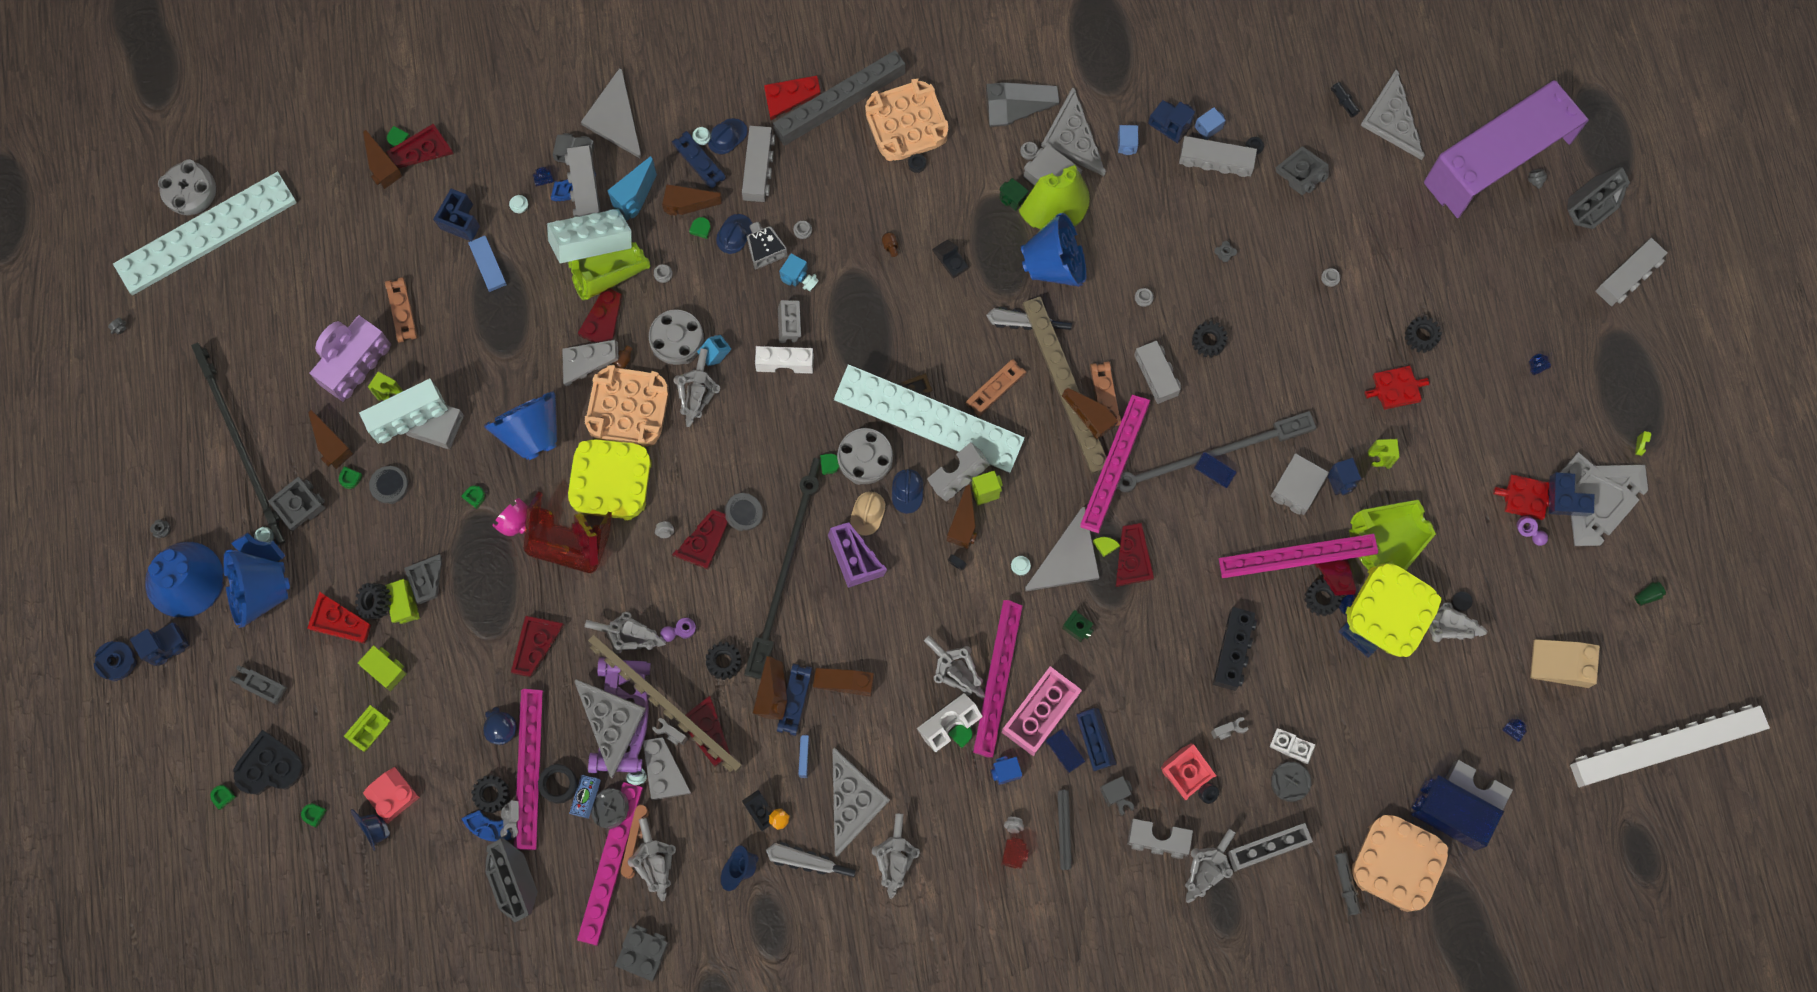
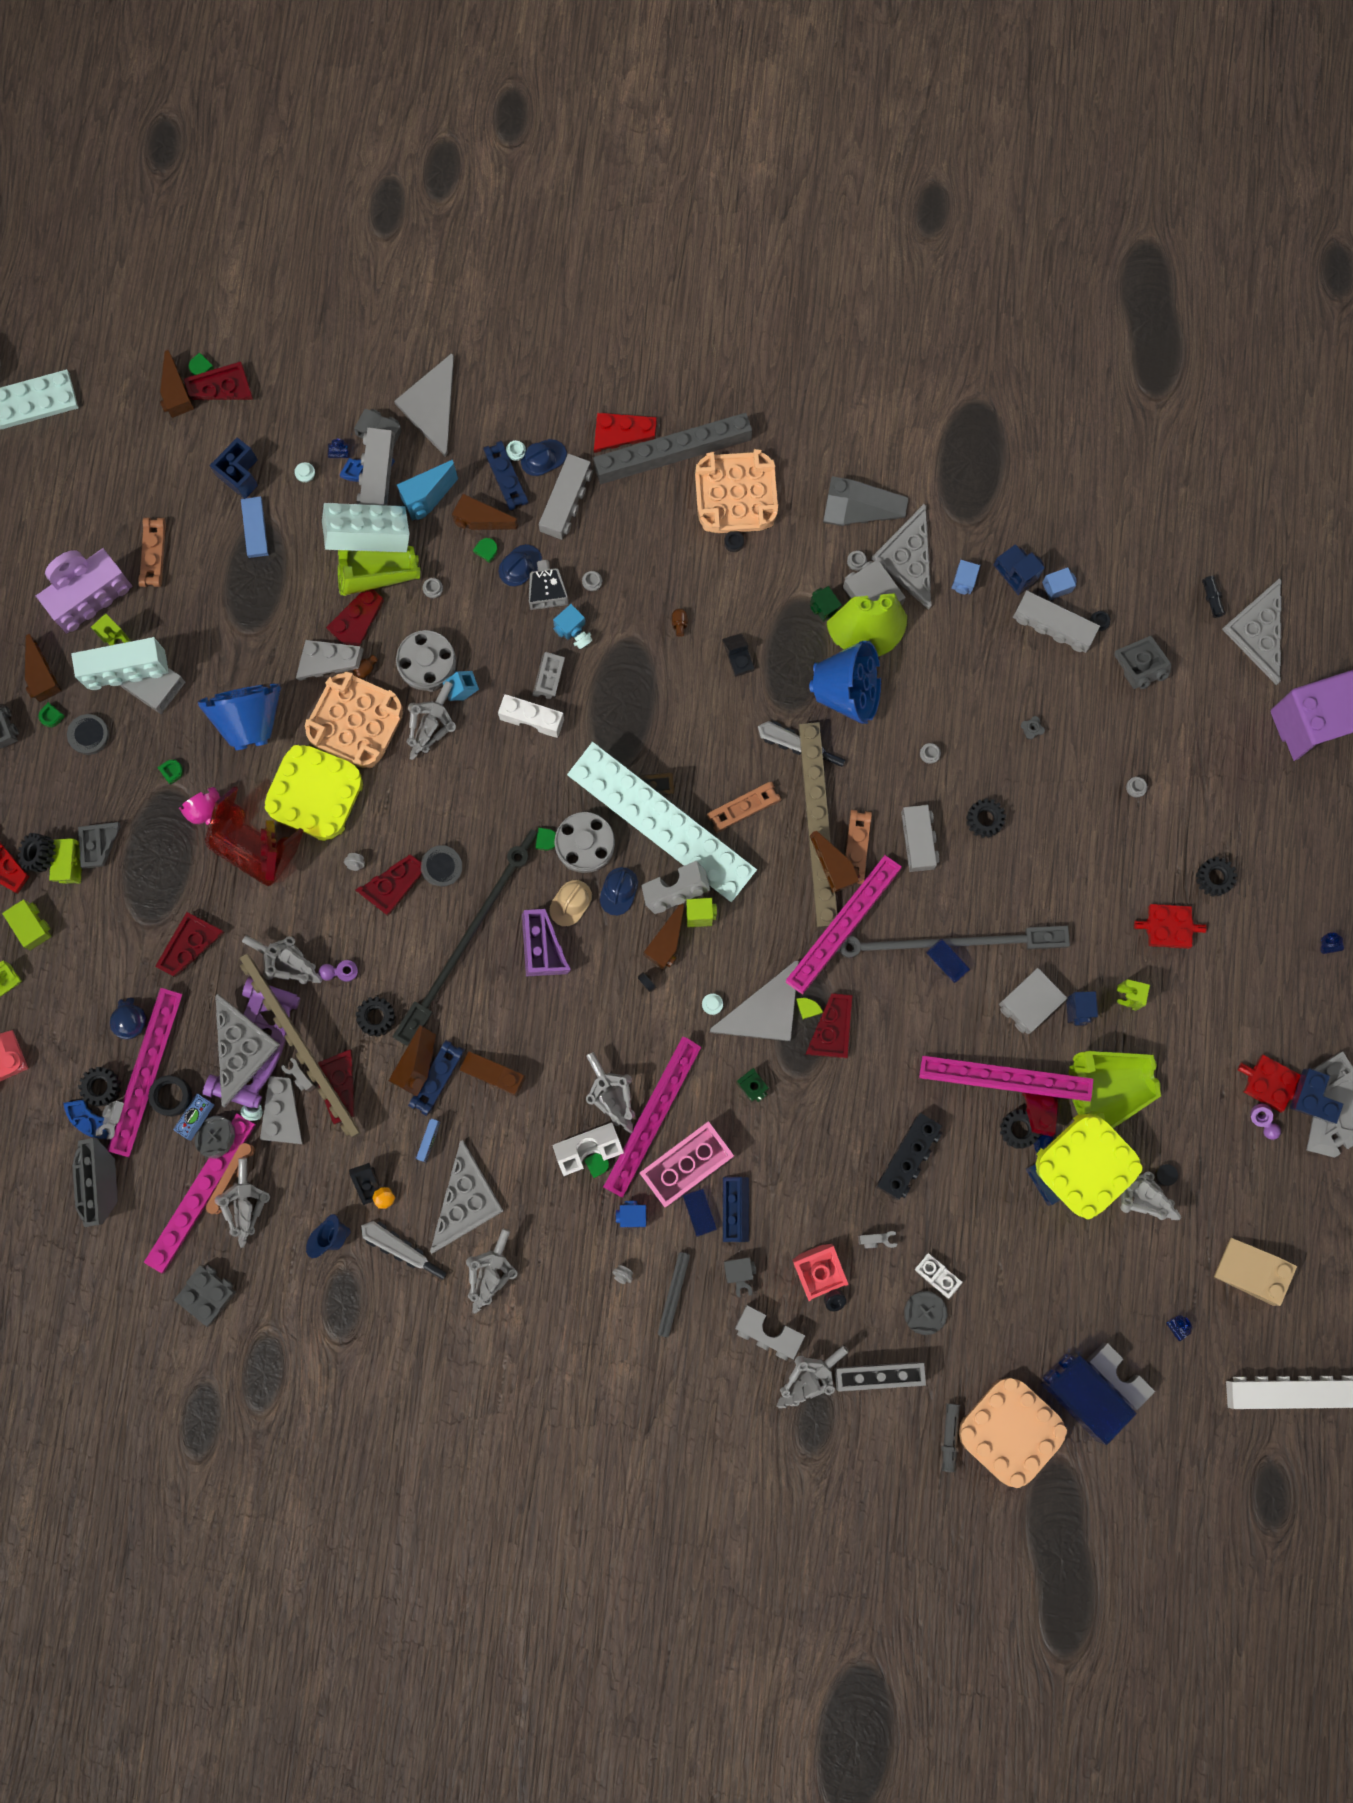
camera: 15 degrees right, 5 degrees up
(1014, 853) = (614, 1304): clear red brick -> none

